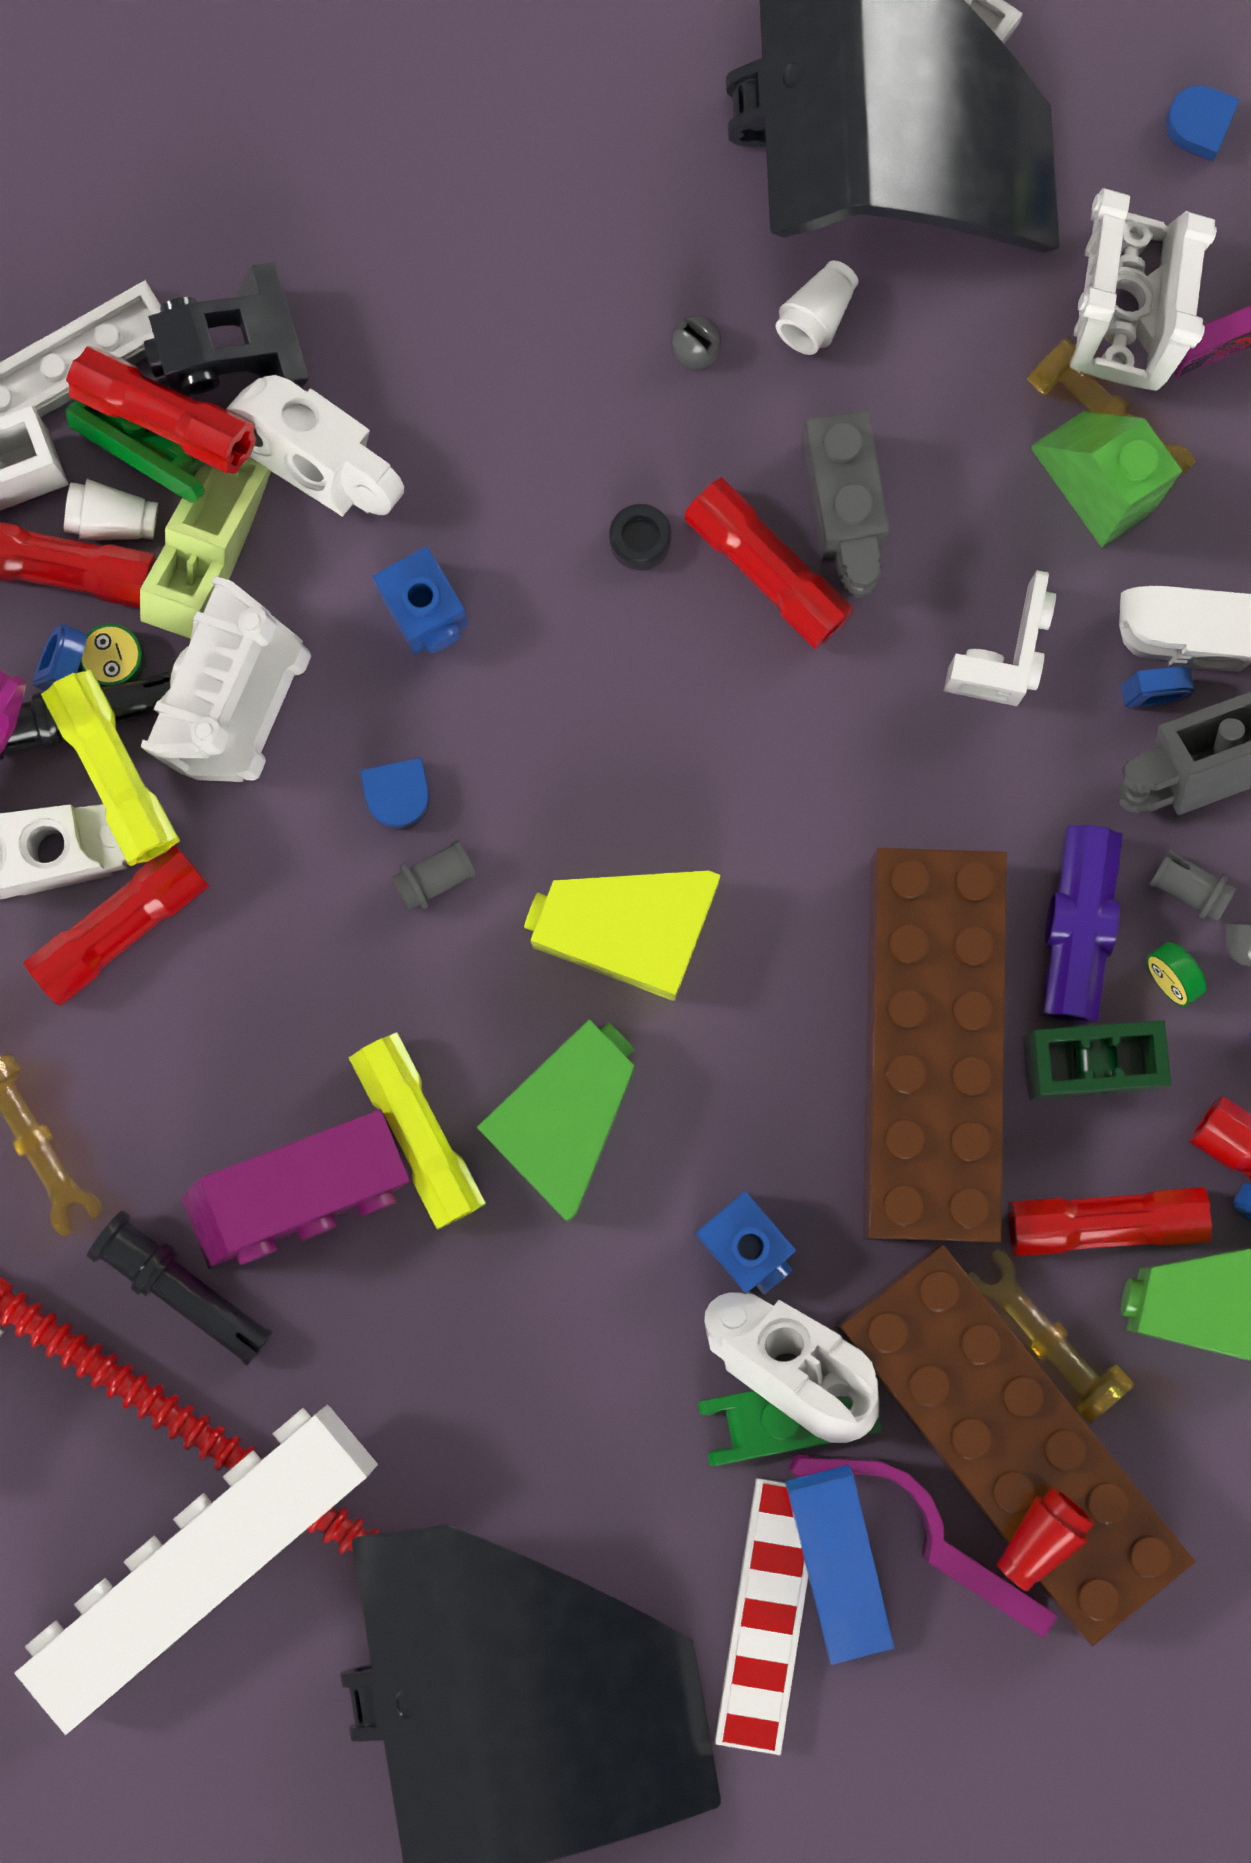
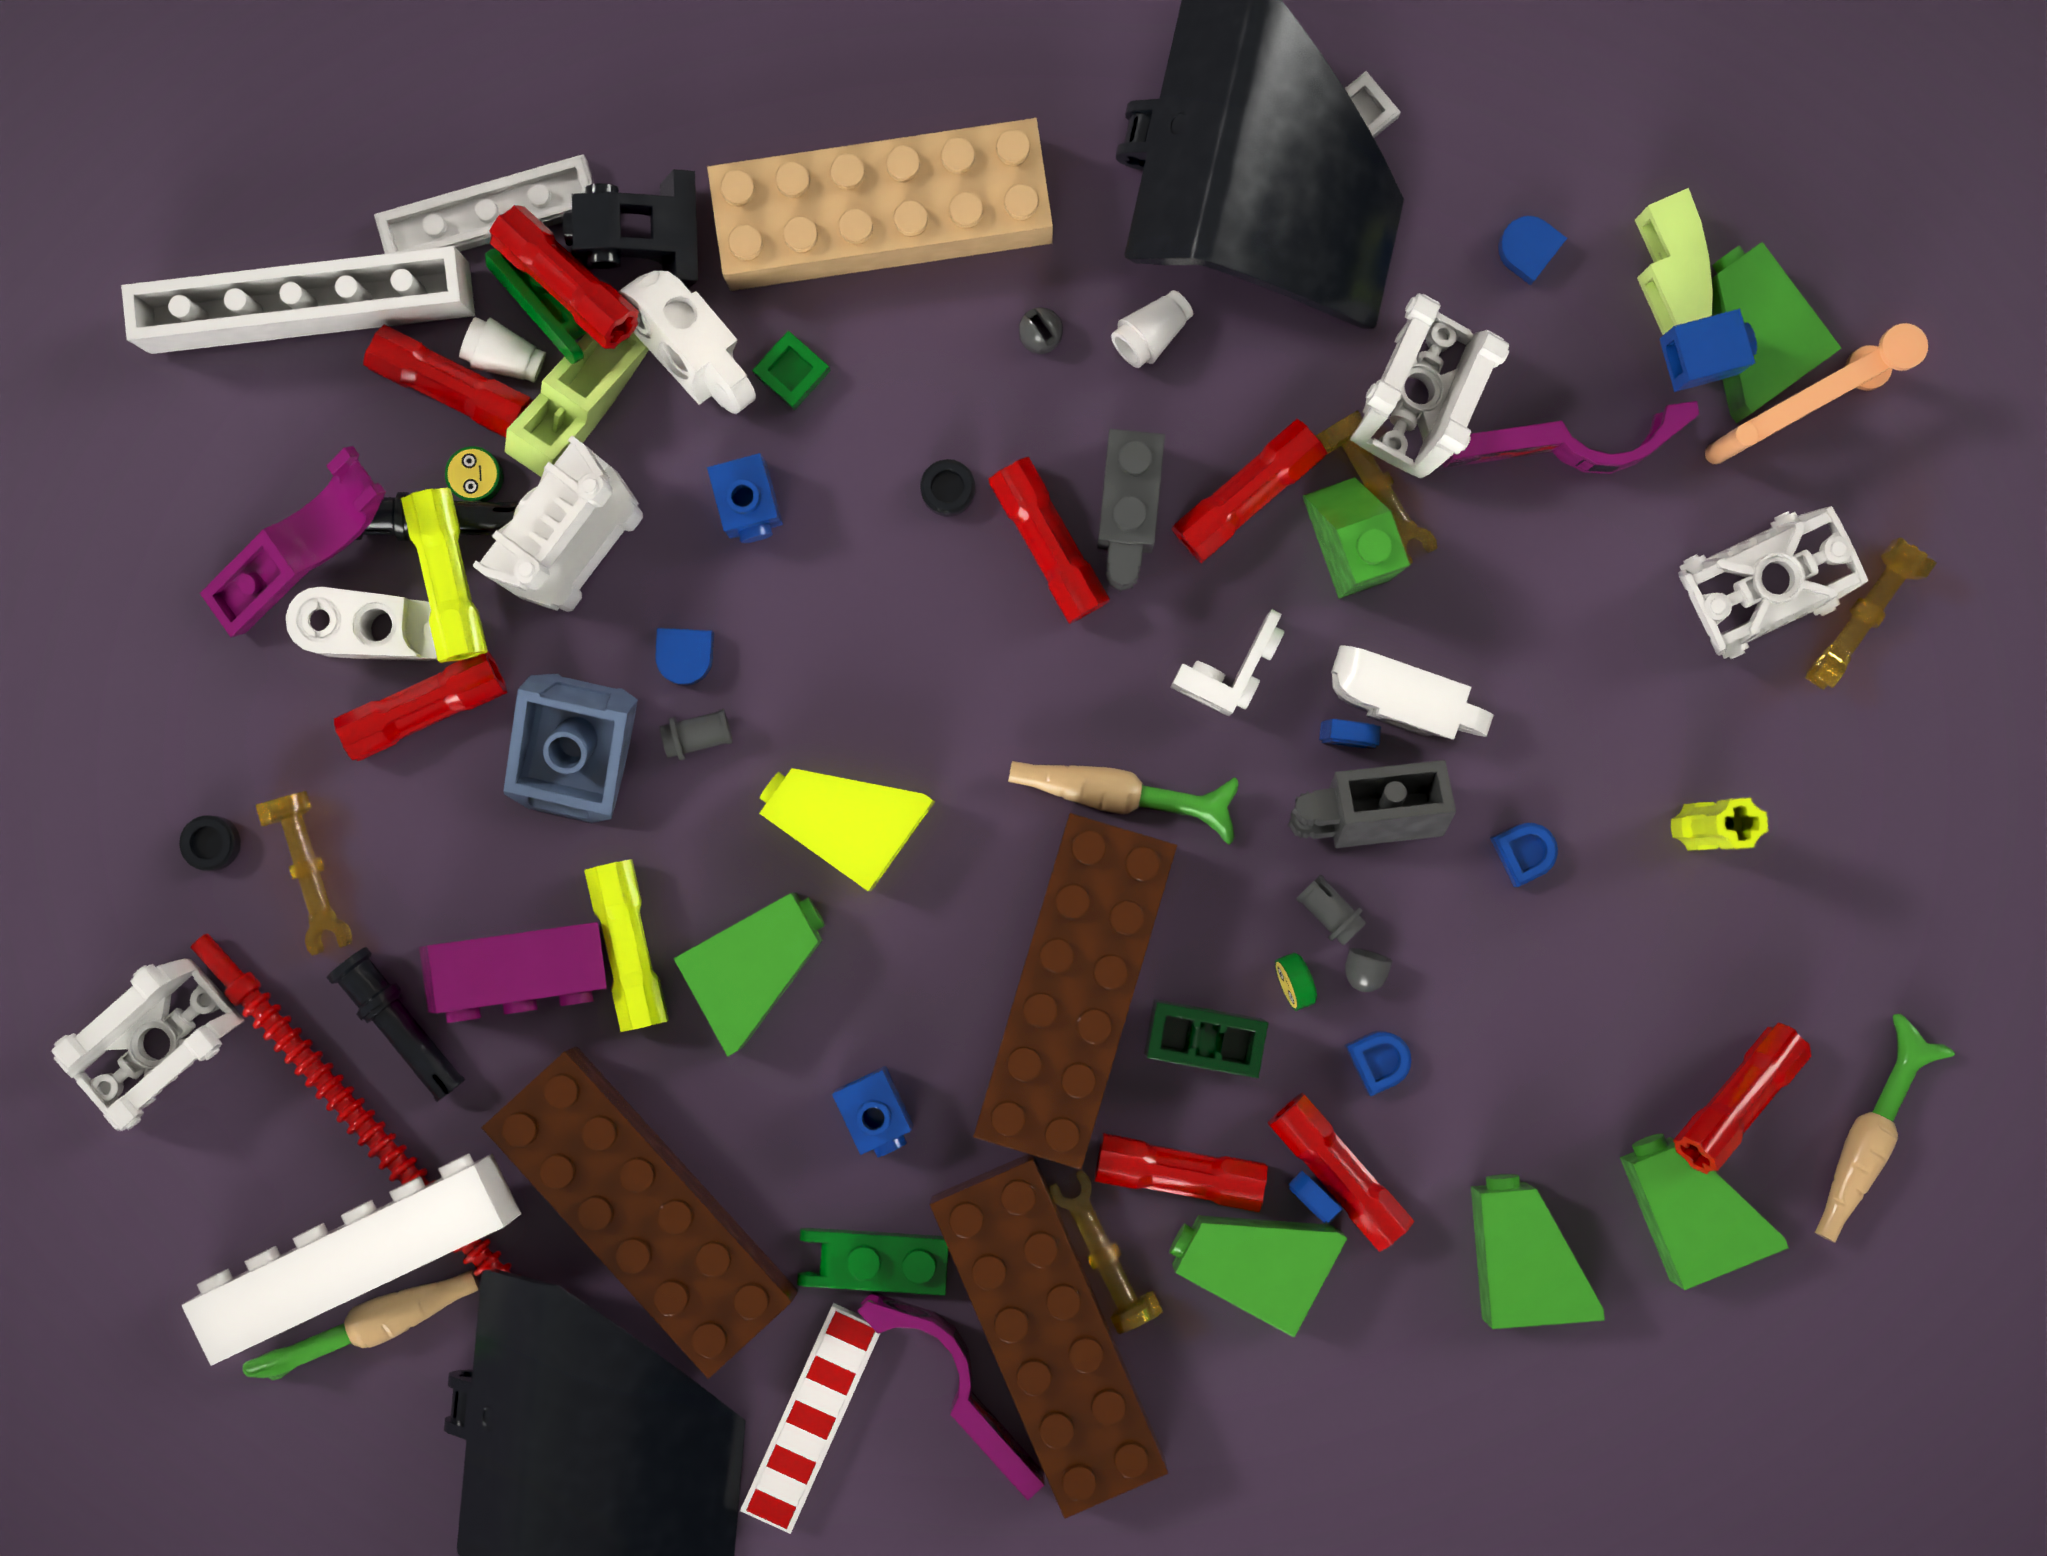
camera: 20 degrees right, 5 degrees up
(59, 656) = (429, 465): blue tile -> none
(231, 1643) = (367, 1325): none -> tan piece
(296, 928) = (569, 747): none -> sand blue slope
(434, 454) = (791, 370): none -> green tile
(489, 248) = (881, 204): none -> tan brick
(513, 1426) = (641, 1211): none -> reddish brown brick
(753, 1333) = (859, 1186): white piece -> none
(839, 1564) = (878, 1395): blue tile -> none
(926, 816) = (1123, 792): none -> tan piece
(952, 483) = (1247, 492): none -> red axle
(1045, 1538) = (1046, 1424): red cone -> none
(1081, 924) = (1228, 918): dark purple piece -> none

